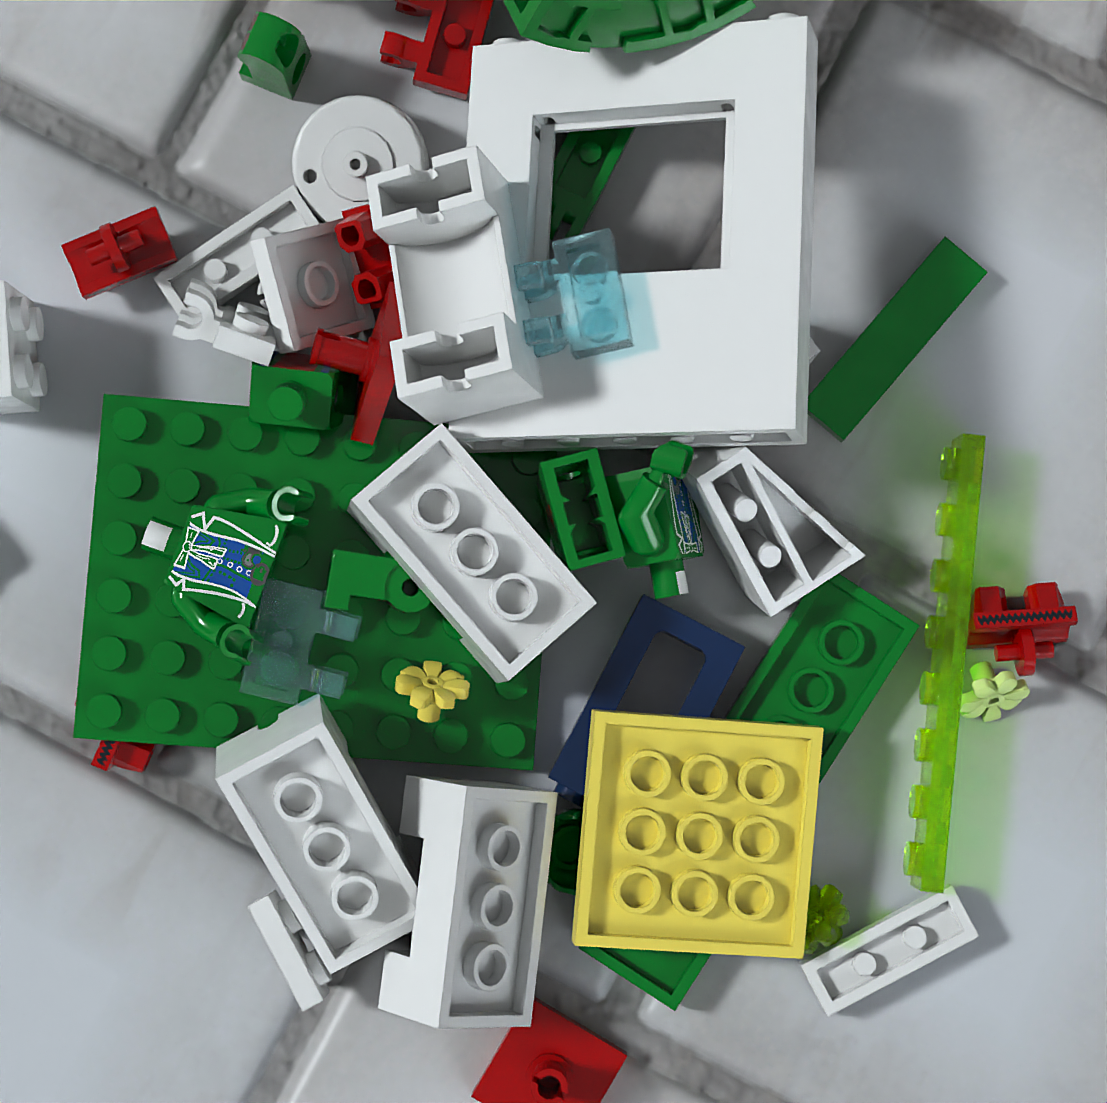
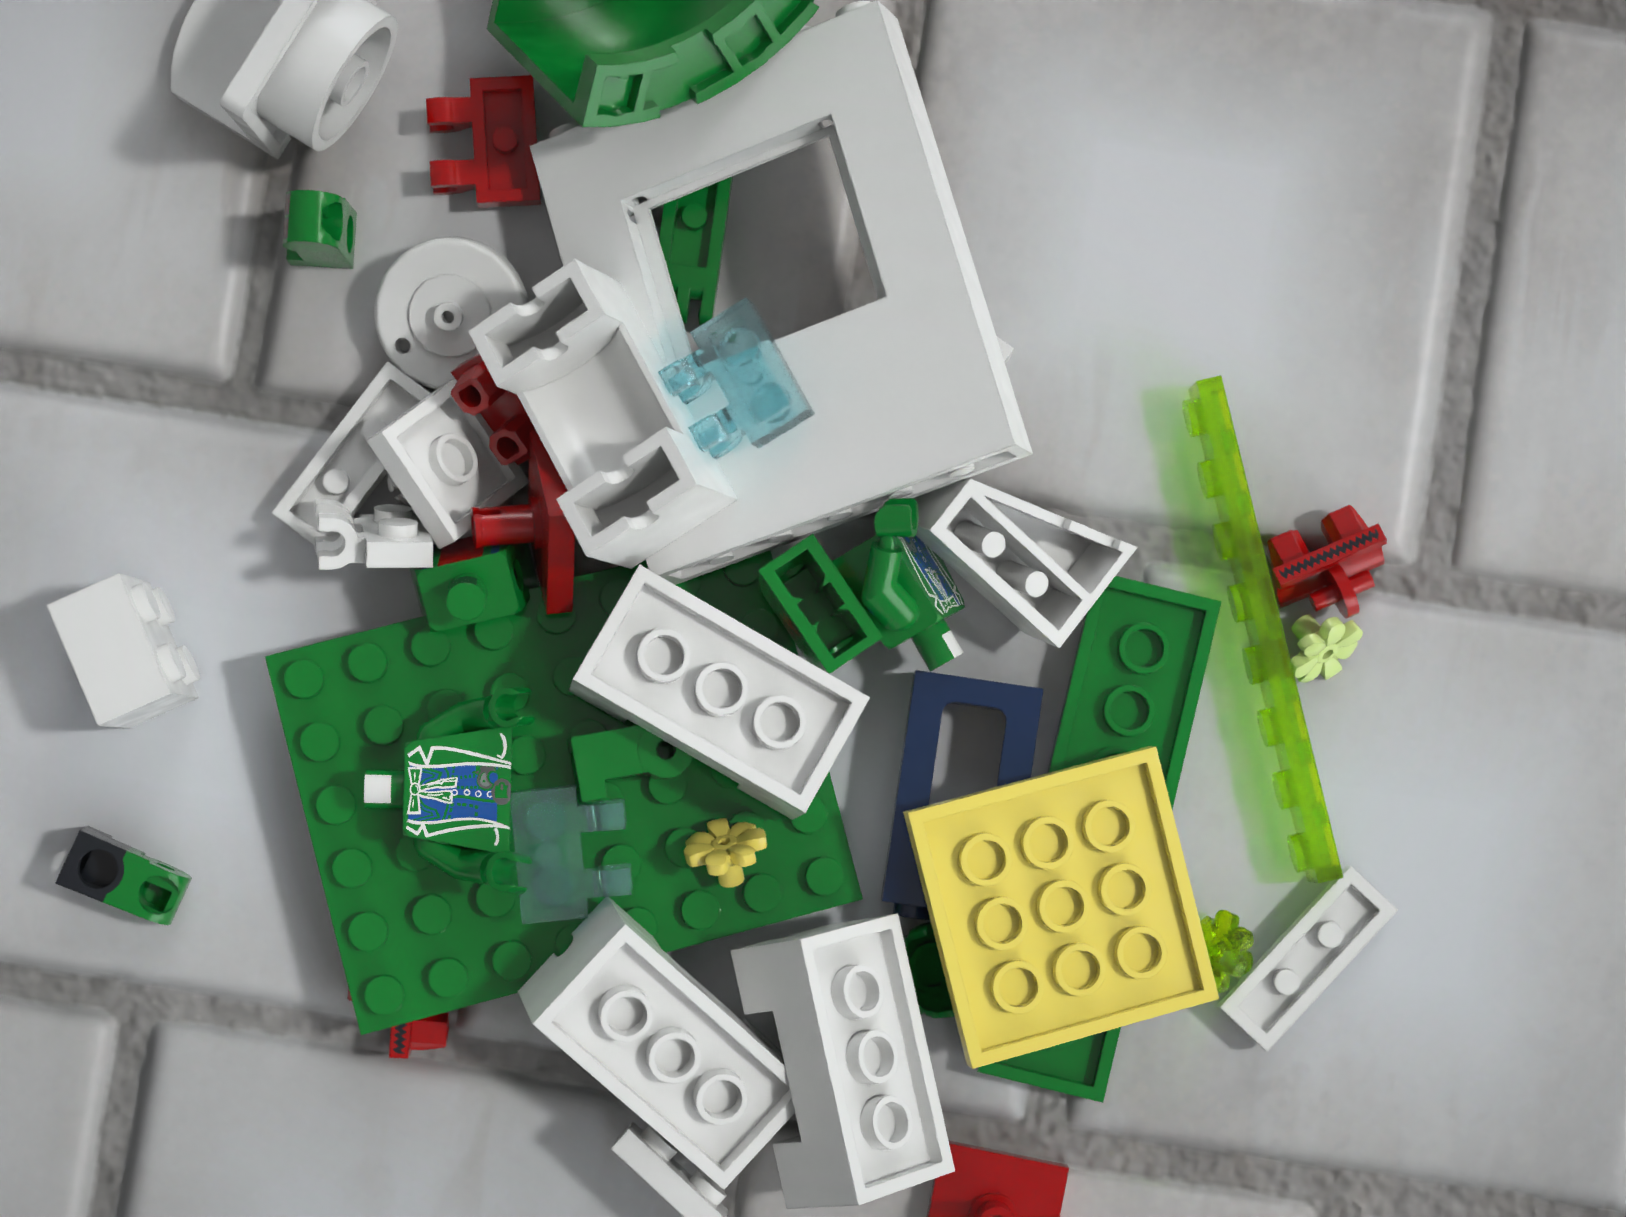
camera: 15 degrees left, 0 degrees up
(120, 252) = (227, 498): red hips -> none
(893, 339) = (1088, 304): green tile -> none

